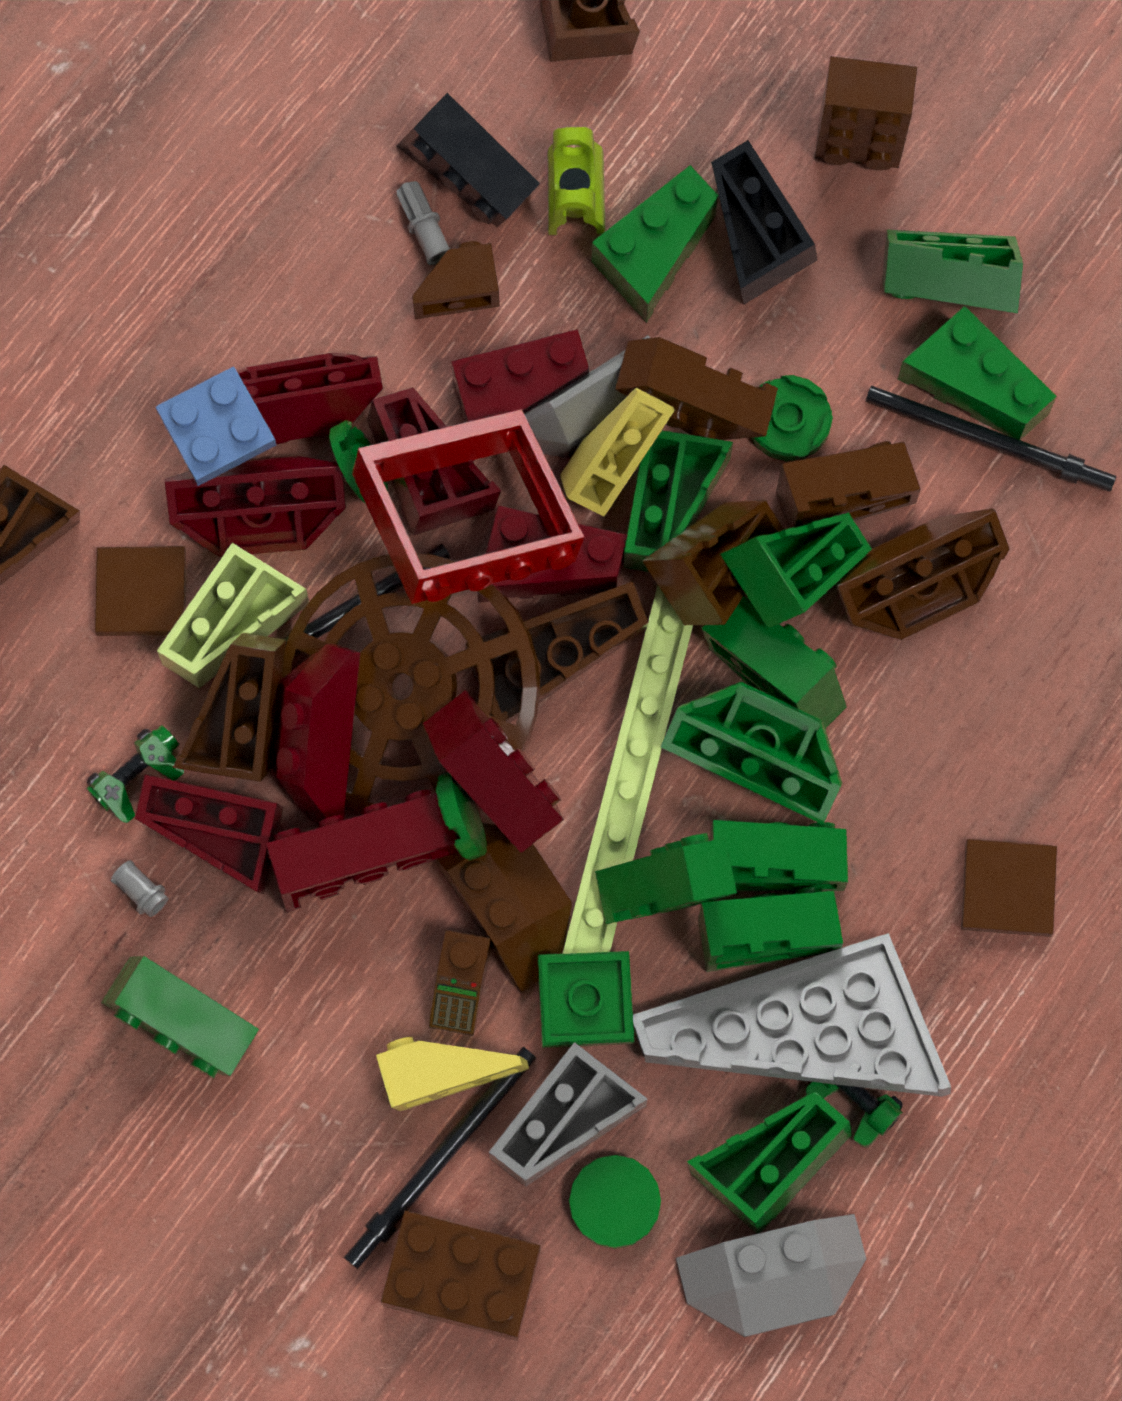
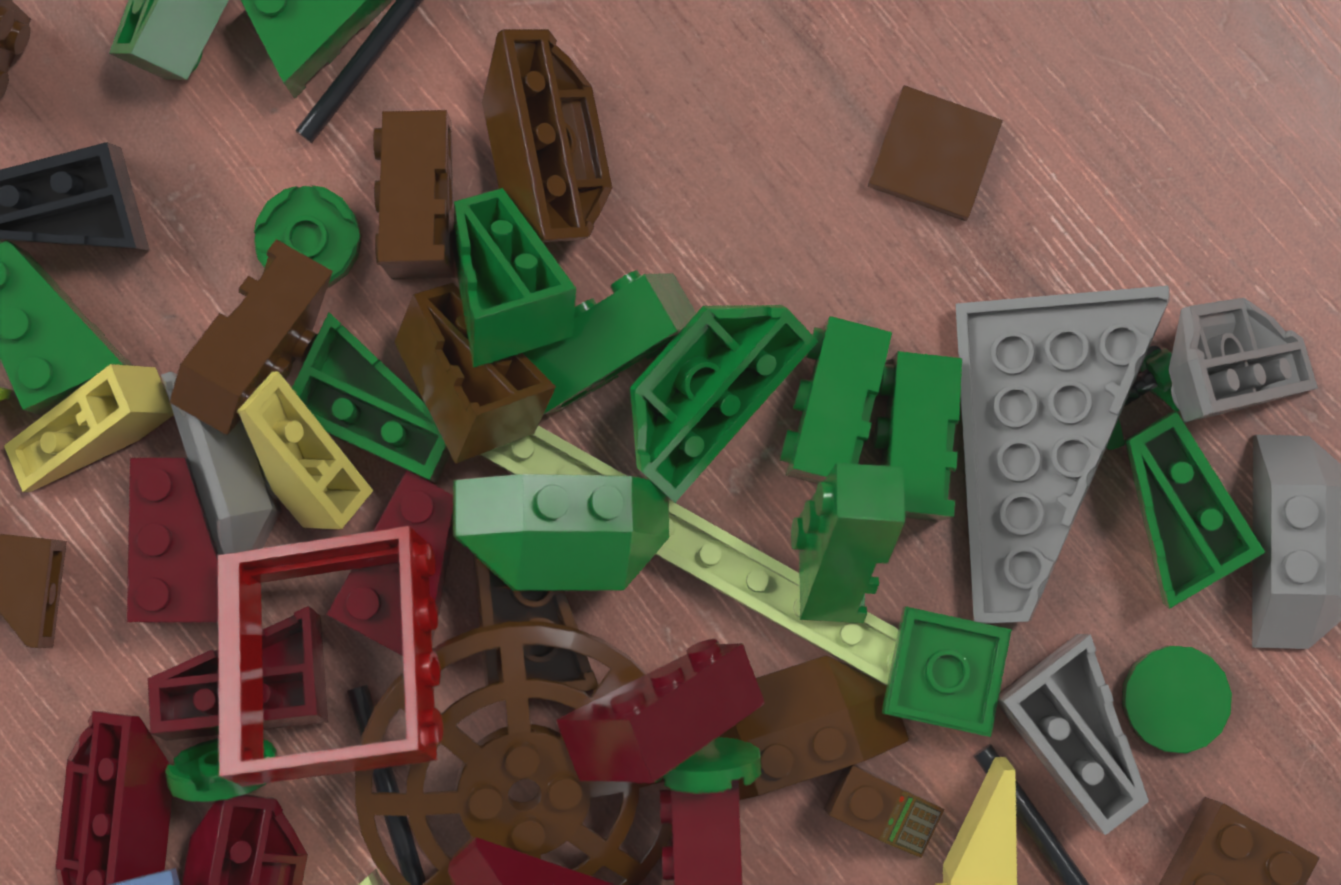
camera: 80 degrees left, 10 degrees up
(594, 296) = (89, 424): none -> light yellow slope
(615, 662) = (561, 528): none -> green wedge
(908, 1167) = (1234, 359): none -> light grey wedge

